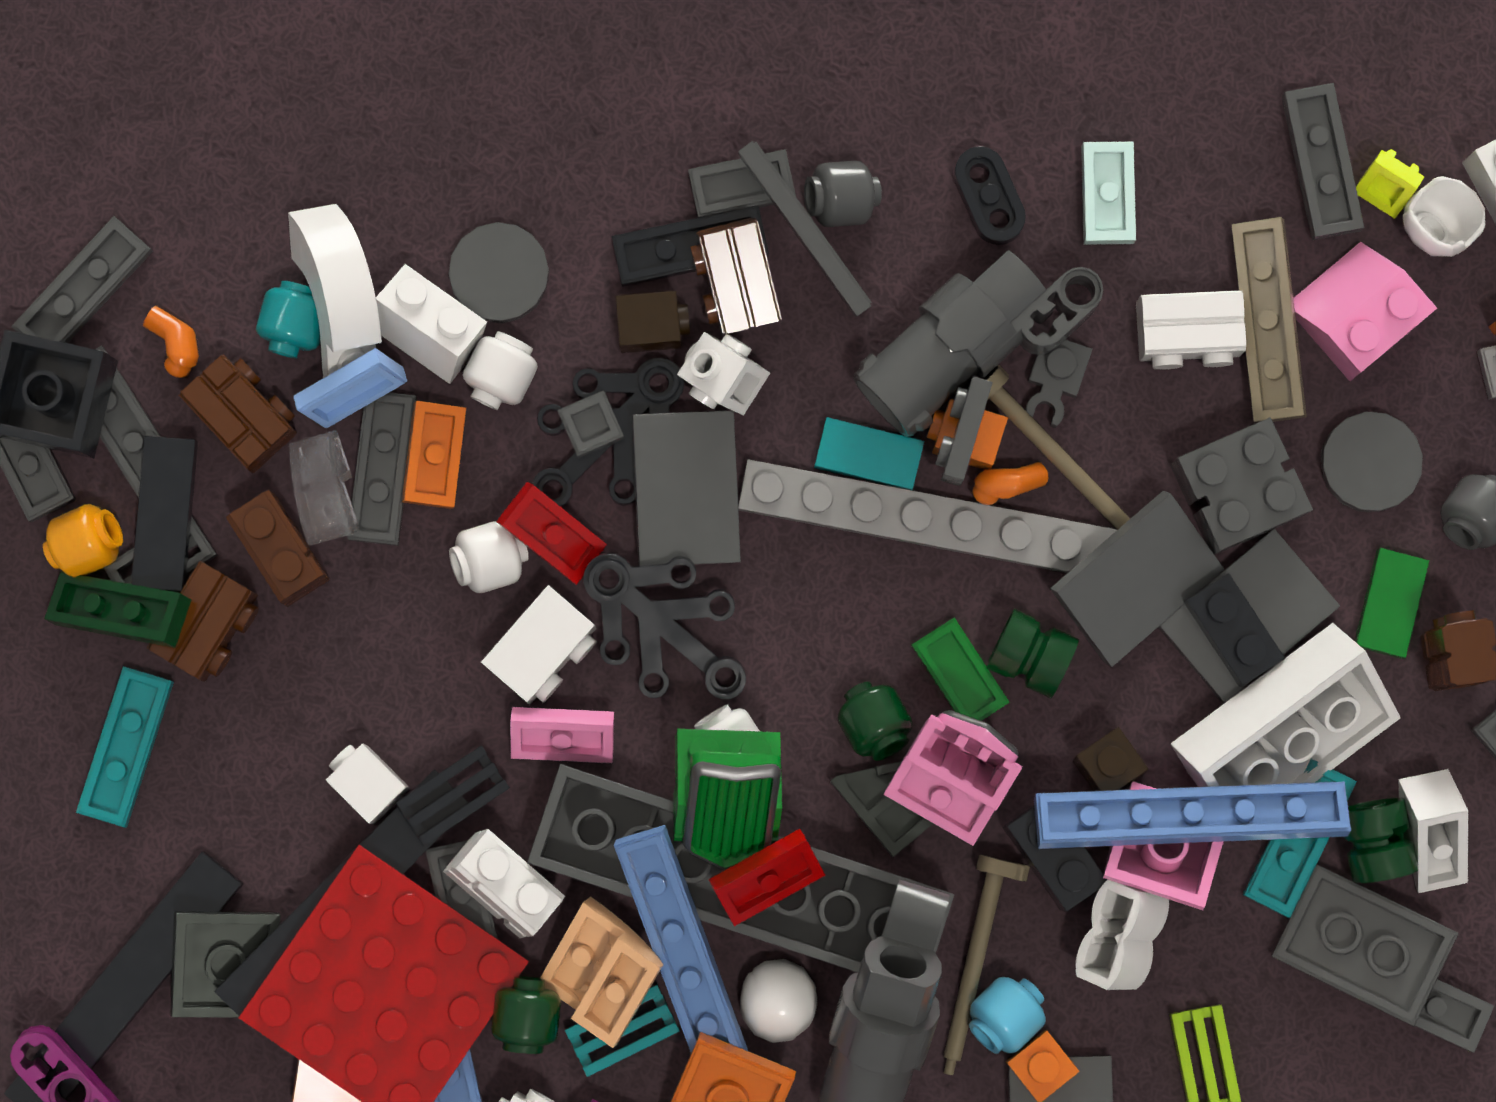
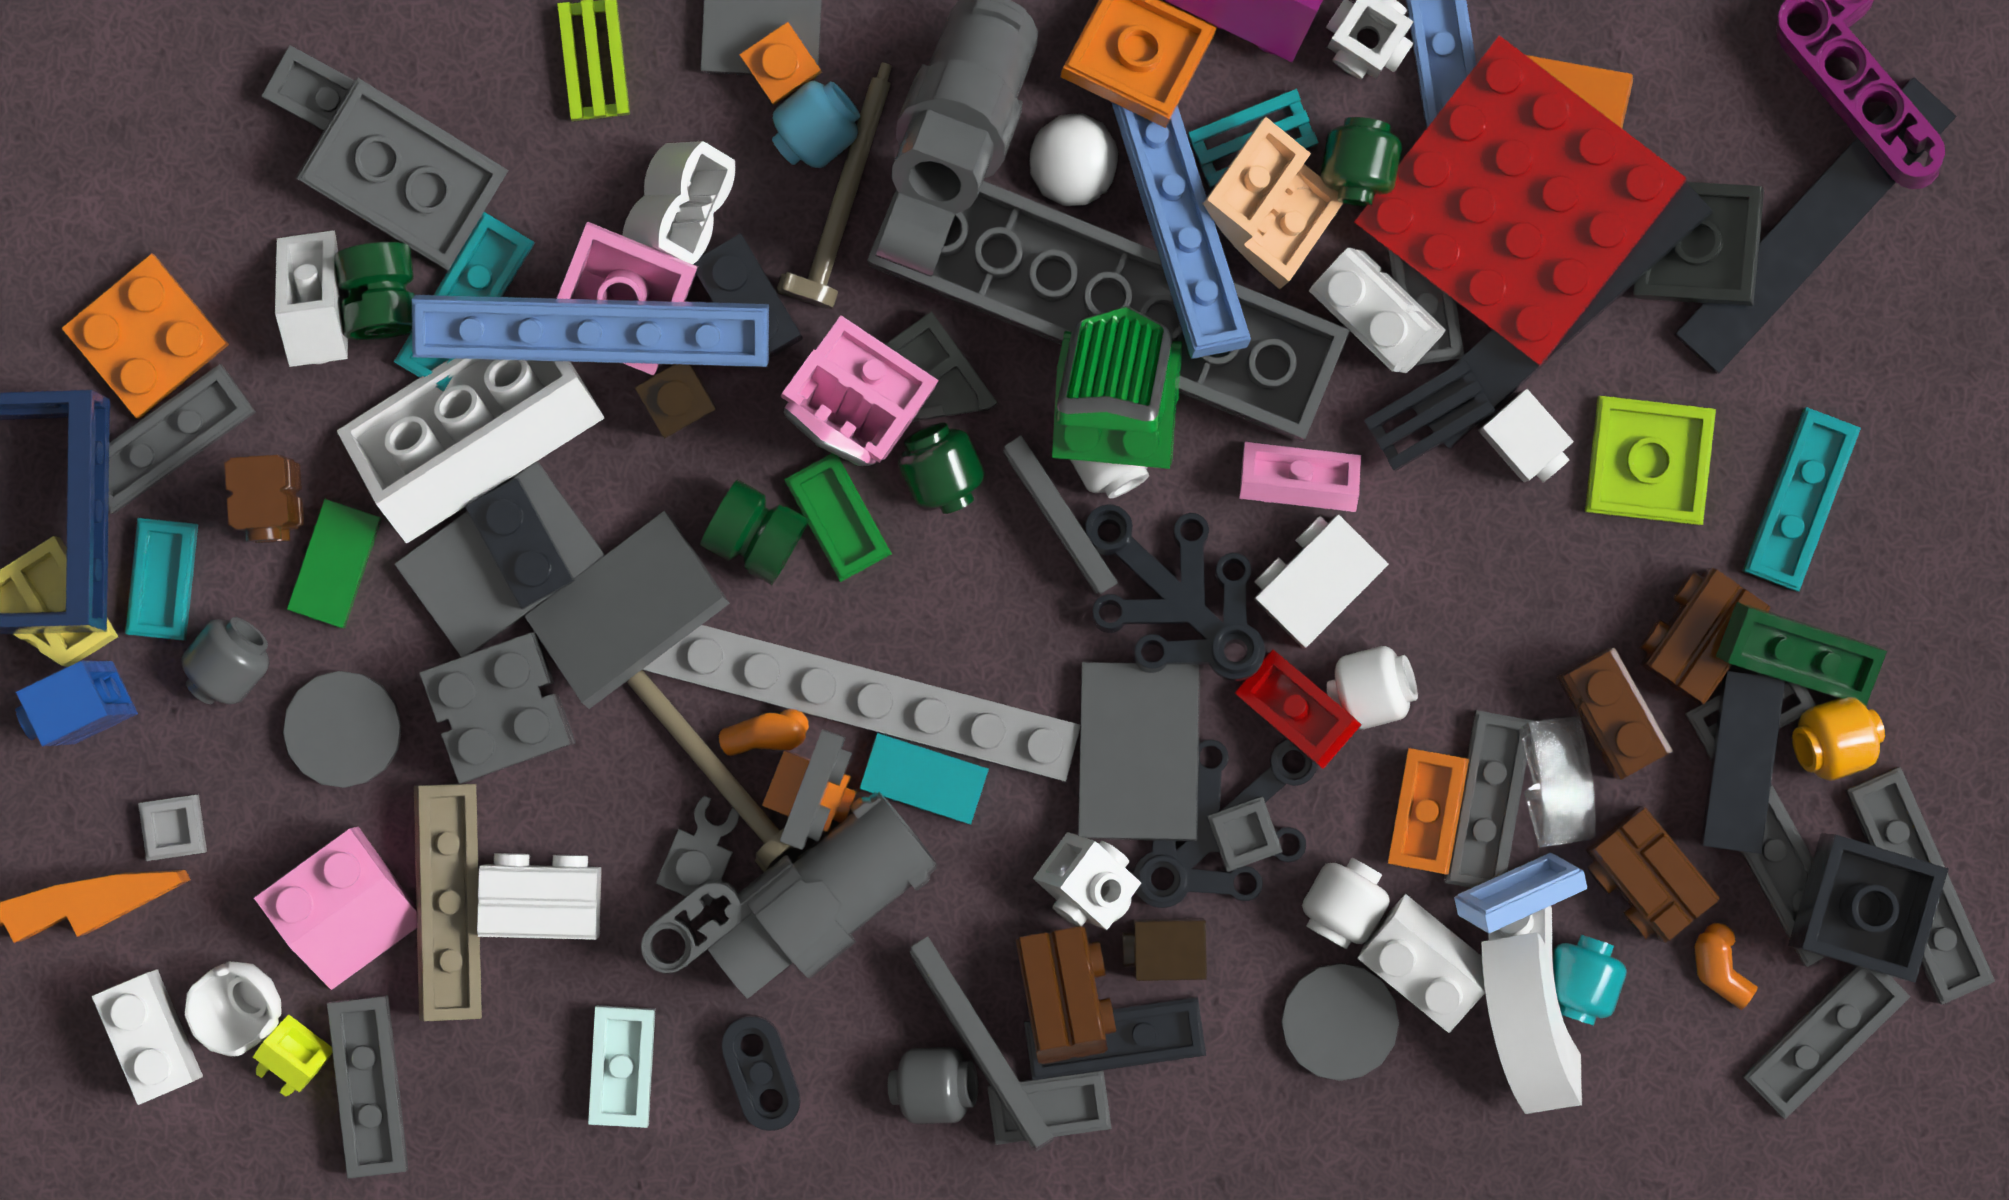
camera: 175 degrees left, 5 degrees up
(258, 771) = (1650, 460): none -> lime tile
(767, 877) = (1079, 292): red plate -> none
(769, 685) = (1059, 515): none -> dark grey tile

